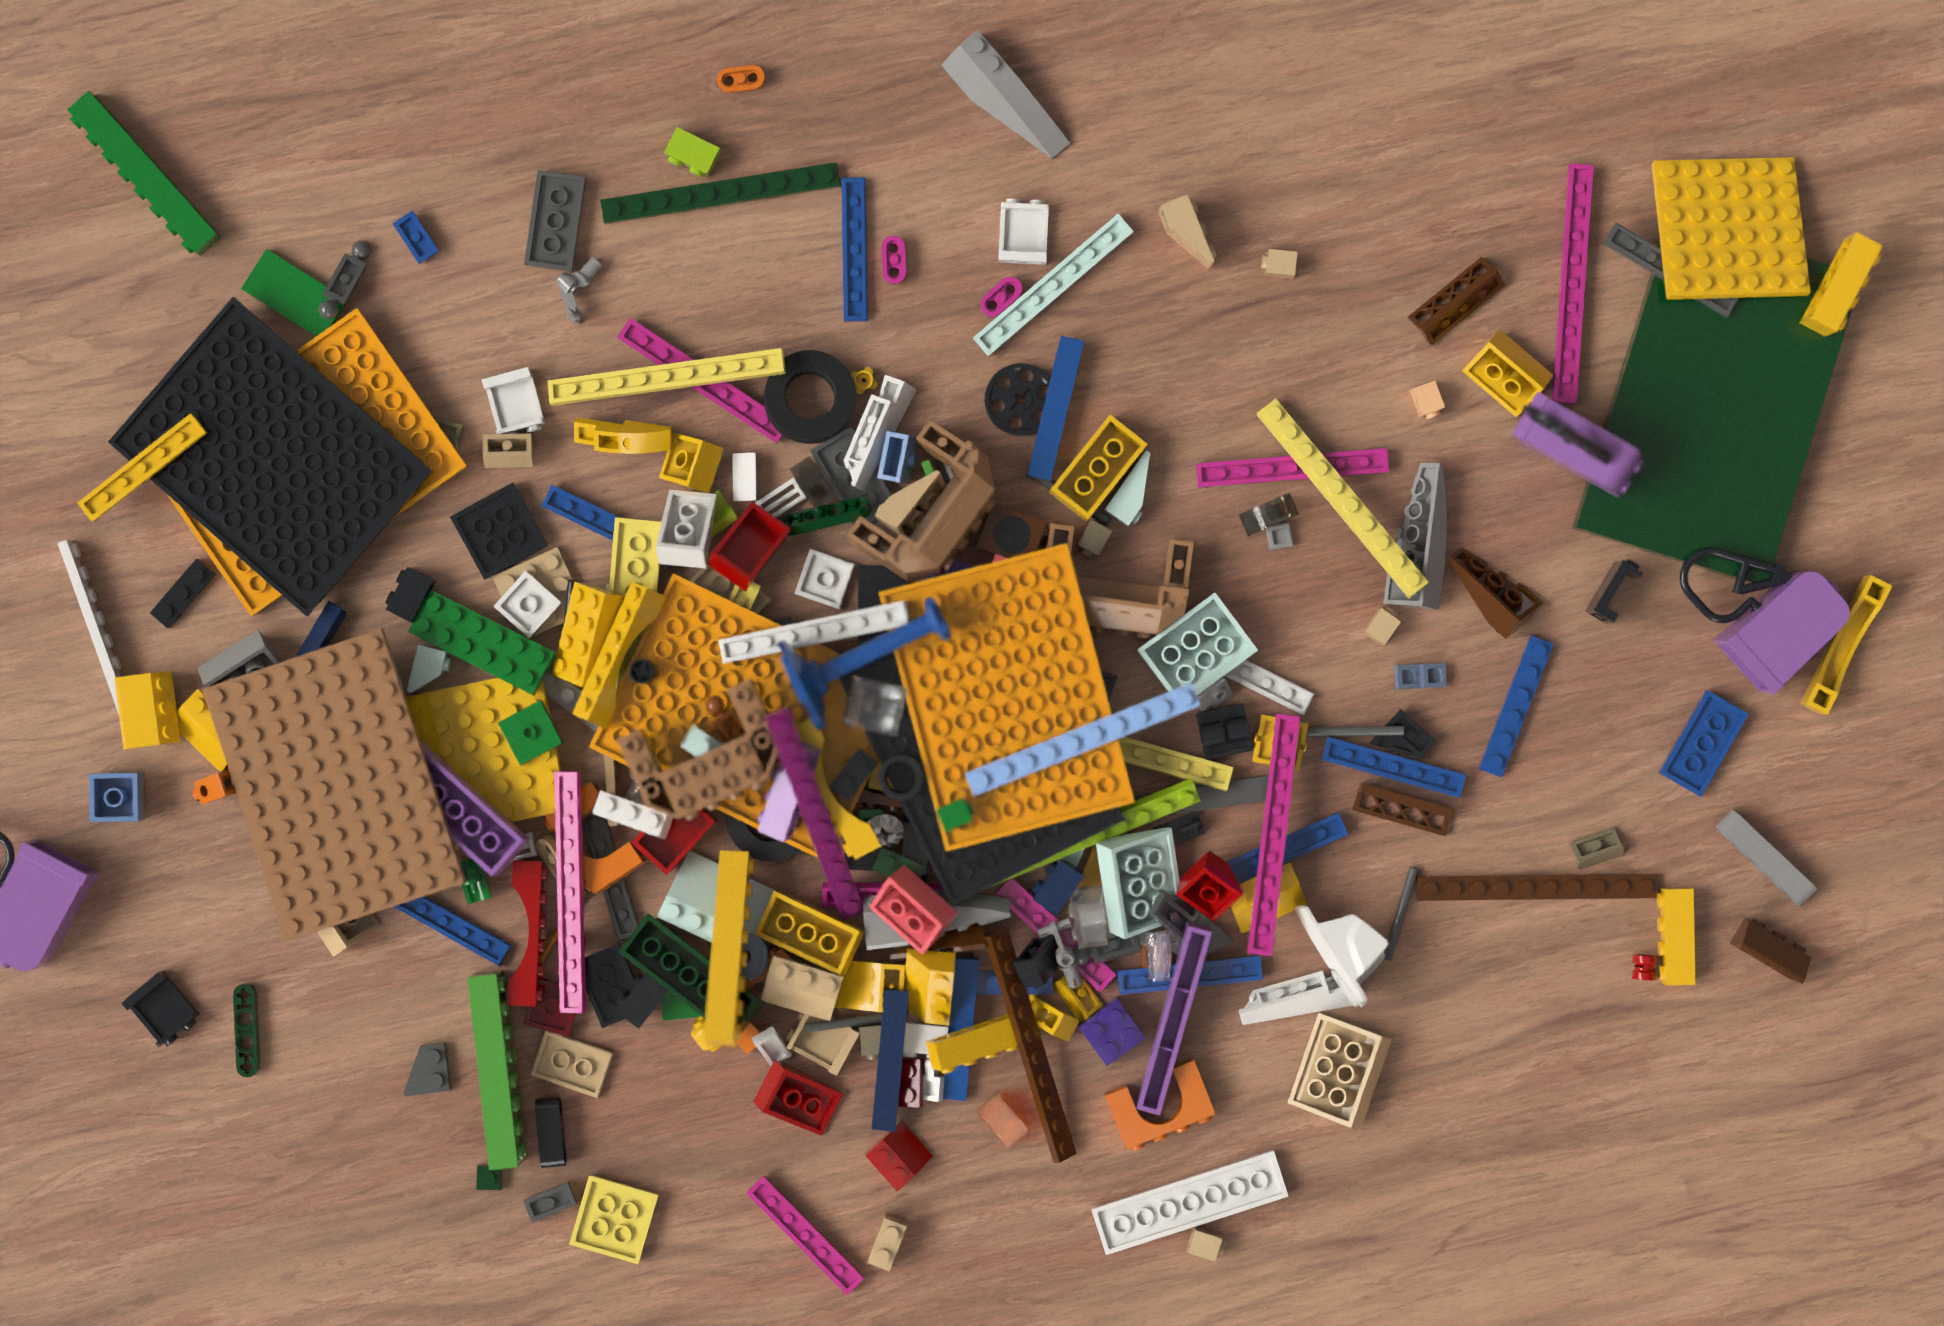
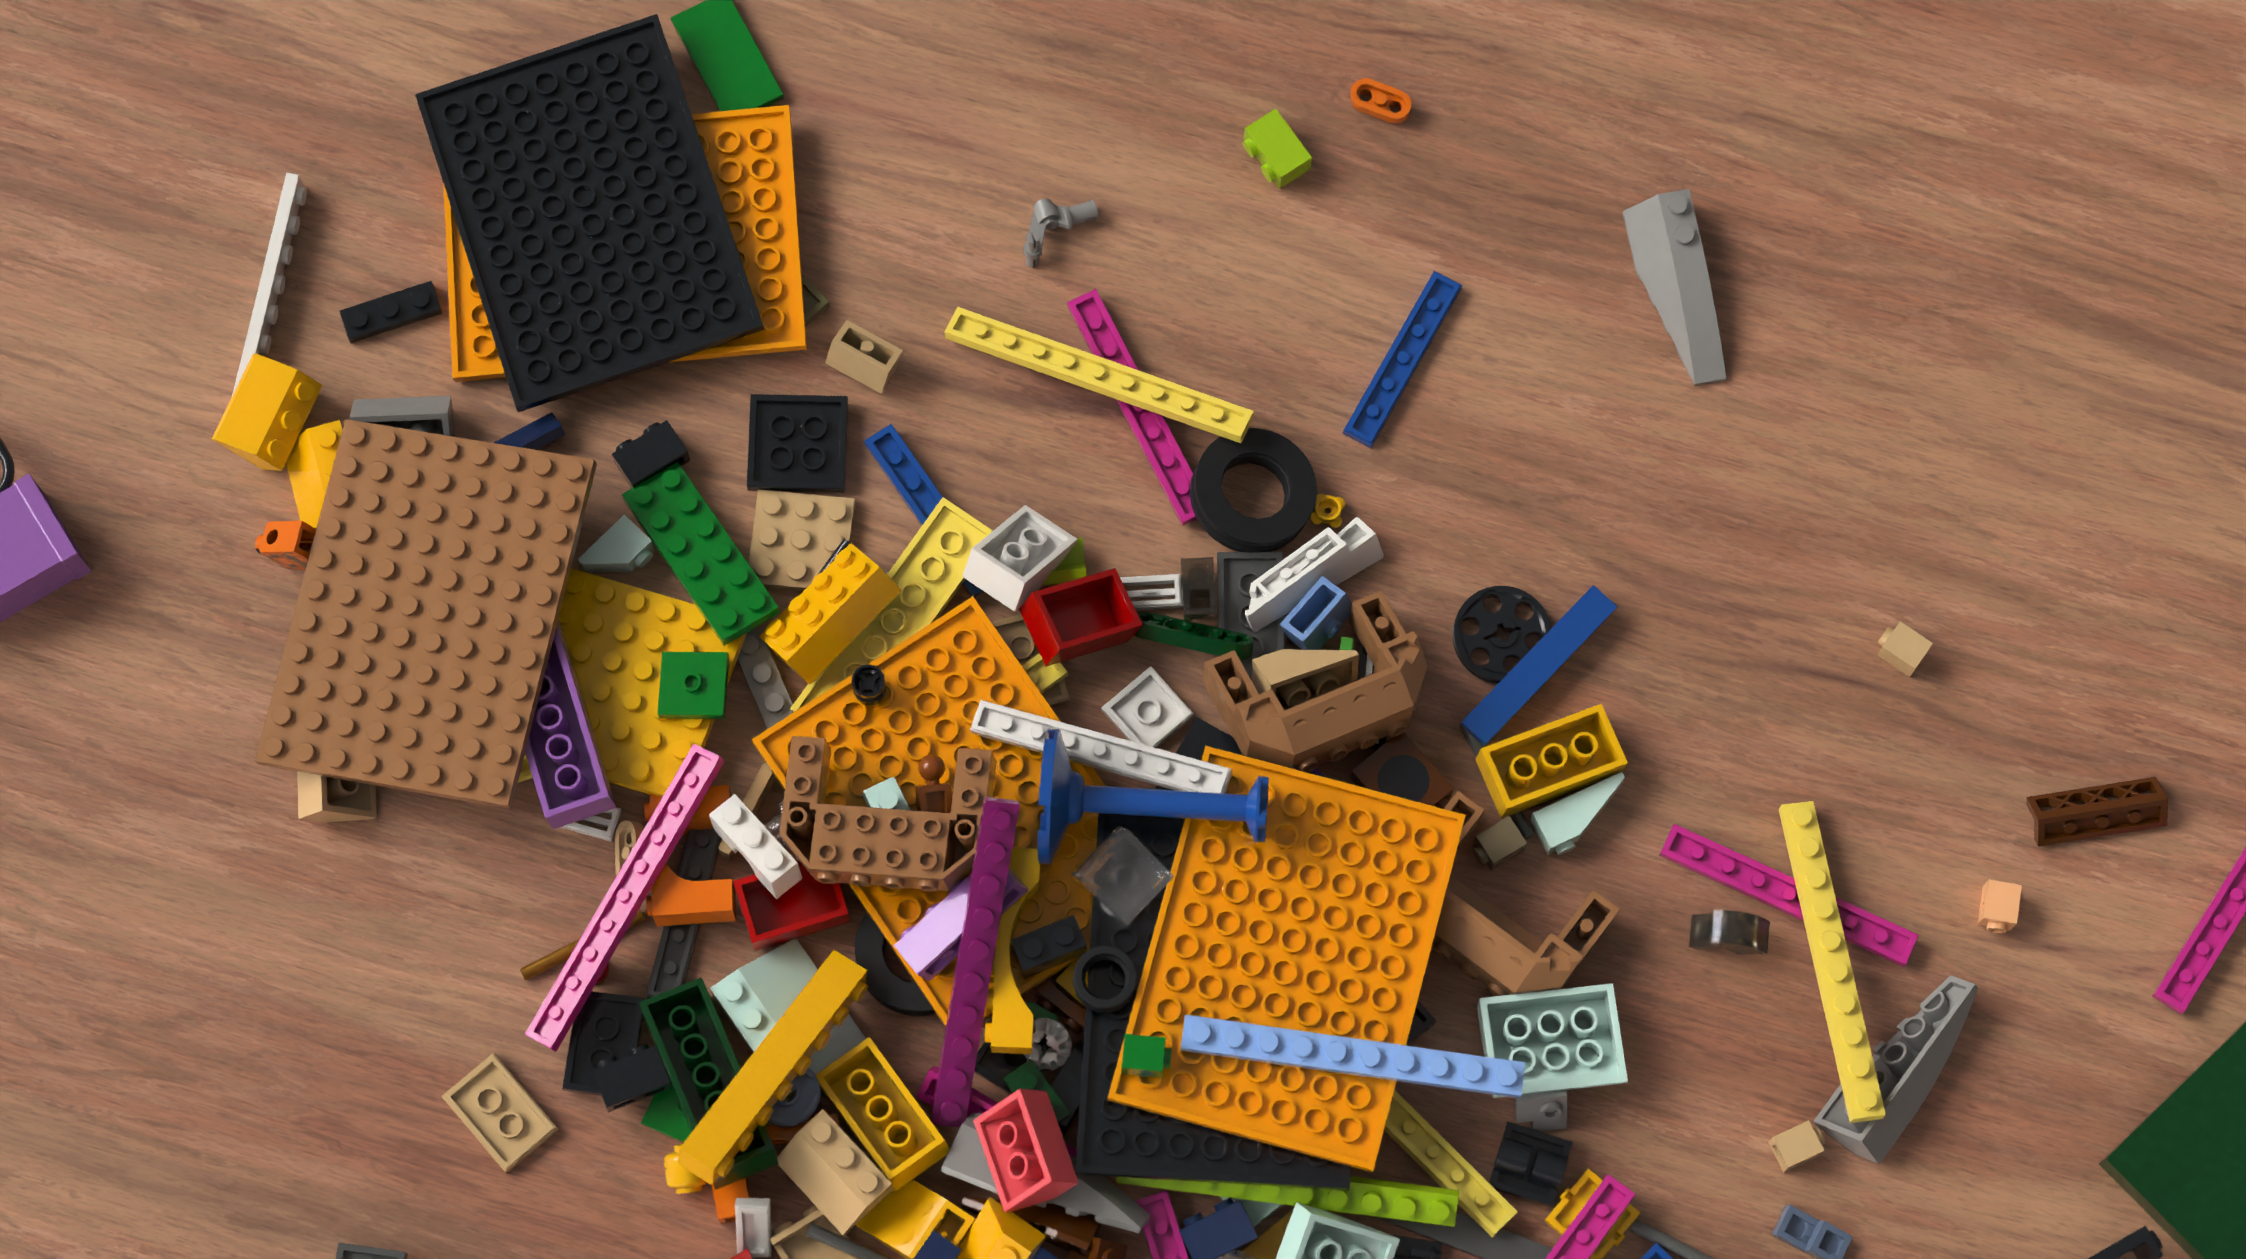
camera: 30 degrees right, 15 degrees down
(116, 797) = (168, 491): medium blue brick -> none
(142, 467) = (435, 140): yellow plate -> none
(162, 1008) = (60, 765): black panel -> none
(250, 1030) = (146, 851): dark green beam -> none
(344, 279) = (793, 70): dark grey plate -> none
(416, 237) = (903, 70): blue plate -> none
(429, 1071) = (324, 1022): dark grey wing -> none
(457, 928) = (460, 866): blue tile -> none
(476, 885) = (519, 825): green hips -> none
(488, 1179) = (315, 1193): dark green plate -> none
(496, 1070) = (406, 1062): bright green brick -> none
(514, 402) = (906, 307): white panel -> none
(524, 984) = (504, 976): red arch -> none
(527, 604) = (780, 541): white tile -> none
(547, 1014) = (505, 1029): dark red plate -> none
(550, 1132) = (423, 1179): black beam -> none
(555, 221) = (1073, 138): dark grey plate -> none
(598, 697) = (796, 687): yellow arch -> none
(624, 438) = (1007, 417): yellow slope -> none
(691, 463) = (1069, 490): yellow slope -> none
(720, 193) = (1283, 212): dark green plate -> none
(745, 476) = (1122, 541): white slope -> none
(893, 260) = (1442, 396): dark pink plate -> none
(1001, 297) = (1545, 504): dark pink plate -> none
(1023, 232) = (1614, 446): white panel -> none
(1053, 285) = (1615, 525): light aqua plate -> none
(1182, 225) = (1811, 544): tan slope -> none
(1271, 686) = (1617, 1140): white tile -> none
(1279, 536) = (1727, 969): light grey tile -> none
(1499, 600) = (1960, 1198): reddish brown wedge -> none
(1507, 372) = (2116, 929): yellow slope -> none
(1578, 445) = (2159, 1049): medium lavender piece -> none

